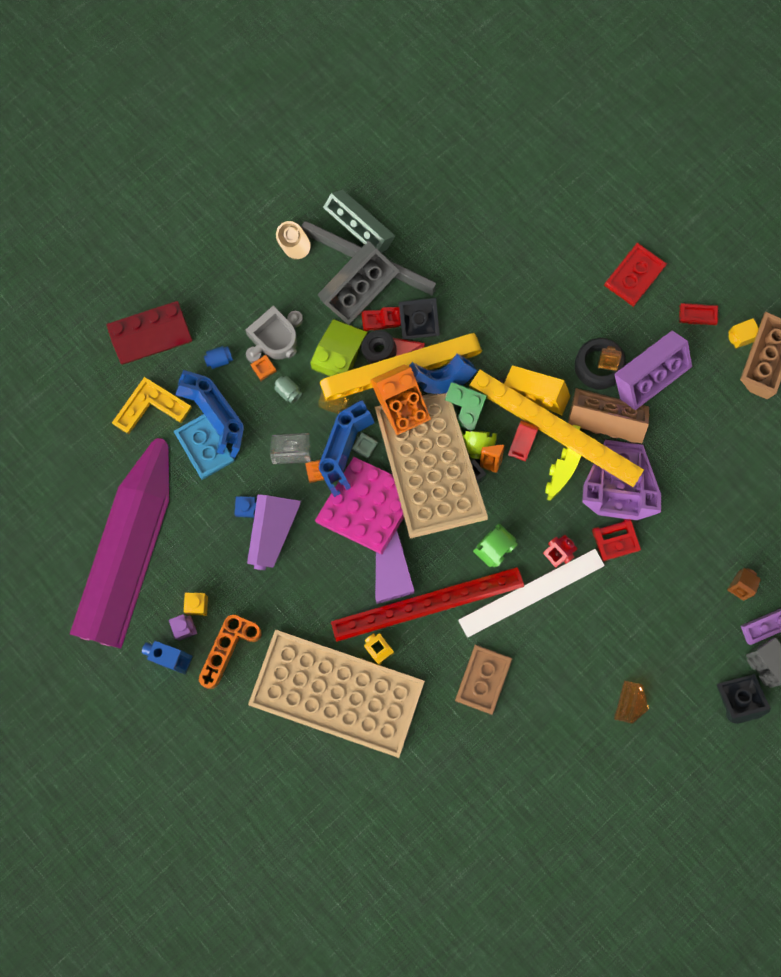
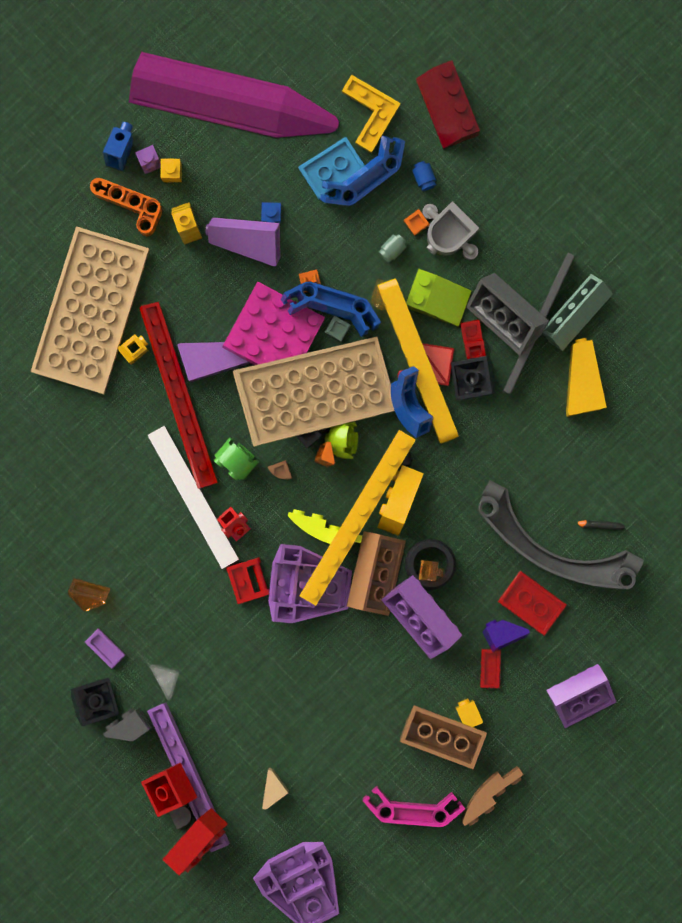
camera: 90 degrees right, 10 degrees up
(250, 587) = (186, 223): none -> yellow slope
(290, 448) = (332, 254): clear slope -> none
(293, 240) = (555, 245): tan cap -> none
(378, 338) = (446, 330): black tyre -> none
(401, 398) = (380, 360): orange slope -> none
(426, 218) = (584, 382): none -> yellow slope
(471, 402) = (382, 431): plate -> none
(483, 679) = (107, 451): medium nougat tile -> none
(505, 505) = (280, 470): none -> medium nougat tile
(523, 441) = (344, 486): tile -> none
(561, 210) = (601, 525): none -> pearl dark grey piece
(607, 209) = (601, 572): none -> dark grey panel
(667, 299) = (503, 634): none -> dark purple slope
(686, 687) = (105, 648): none -> medium lavender tile
(715, 623) = (166, 678): none -> clear slope
(722, 232) = (581, 695): none -> medium lavender slope
(744, 584) = (207, 706): dark orange slope -> none

